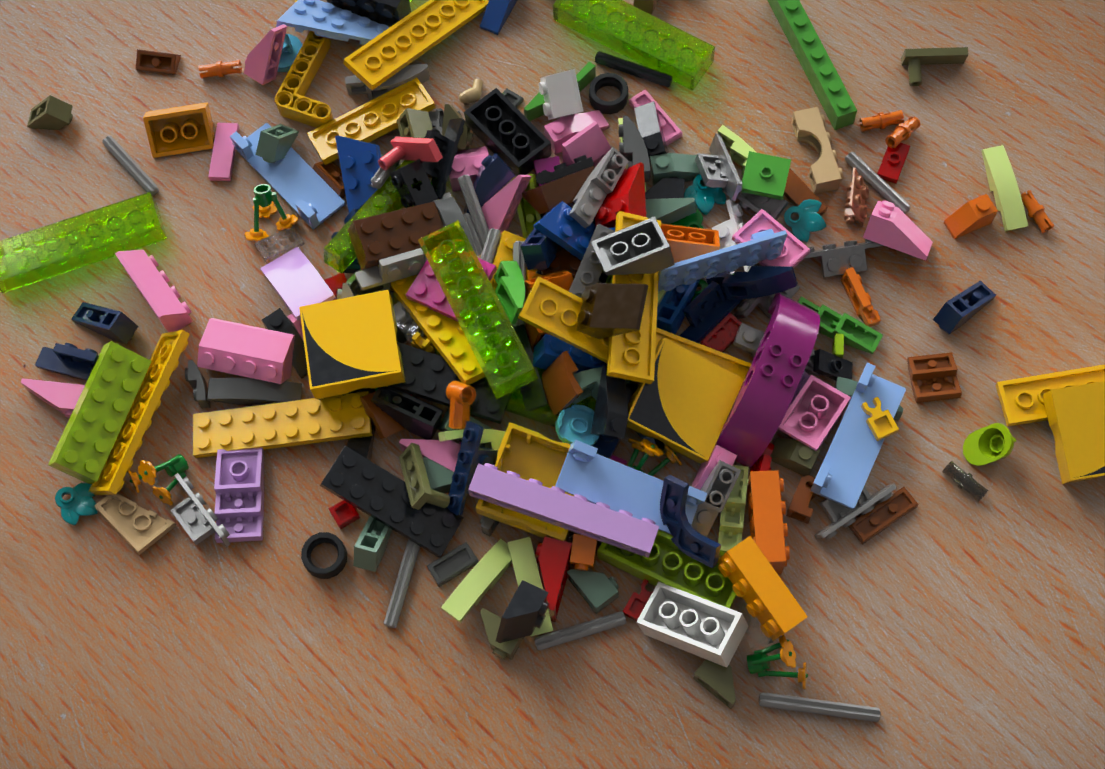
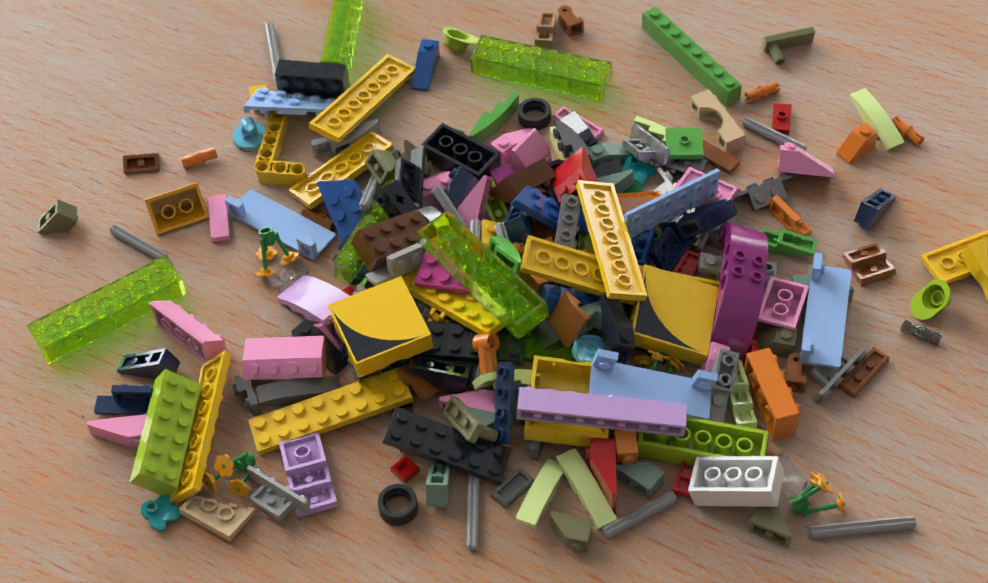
camera: 15 degrees left, 15 degrees down
(264, 59) = (237, 140): bright pink slope -> none
(275, 142) = (264, 200): sand green slope -> none
(410, 149) = (388, 173): coral piece -> none
(472, 94) = (421, 135): tan arm -> none
(523, 613) = (591, 501): black slope -> none
(560, 94) = (499, 115): white slope -> none
(563, 170) = (528, 160): black hinge -> none
(597, 186) = (552, 170): light grey slope -> none
(611, 309) = (598, 244): dark brown slope -> none
(633, 69) = (547, 93): black axle -> none
(634, 250) = (603, 200): dark grey slope -> none
(684, 536) = (707, 412): dark blue plate -> none
(761, 589) = (787, 436): light orange brick -> none
(808, 219) = (728, 170): teal plate -> none
(831, 365) = (782, 268): black plate -> none
(838, 345) = (784, 257): lime tile -> none
(855, 200) = (760, 148): nougat hinge -> none
(880, 422) = (838, 296): yellow plate -> none
(902, 132) = (782, 95): orange pin -> none

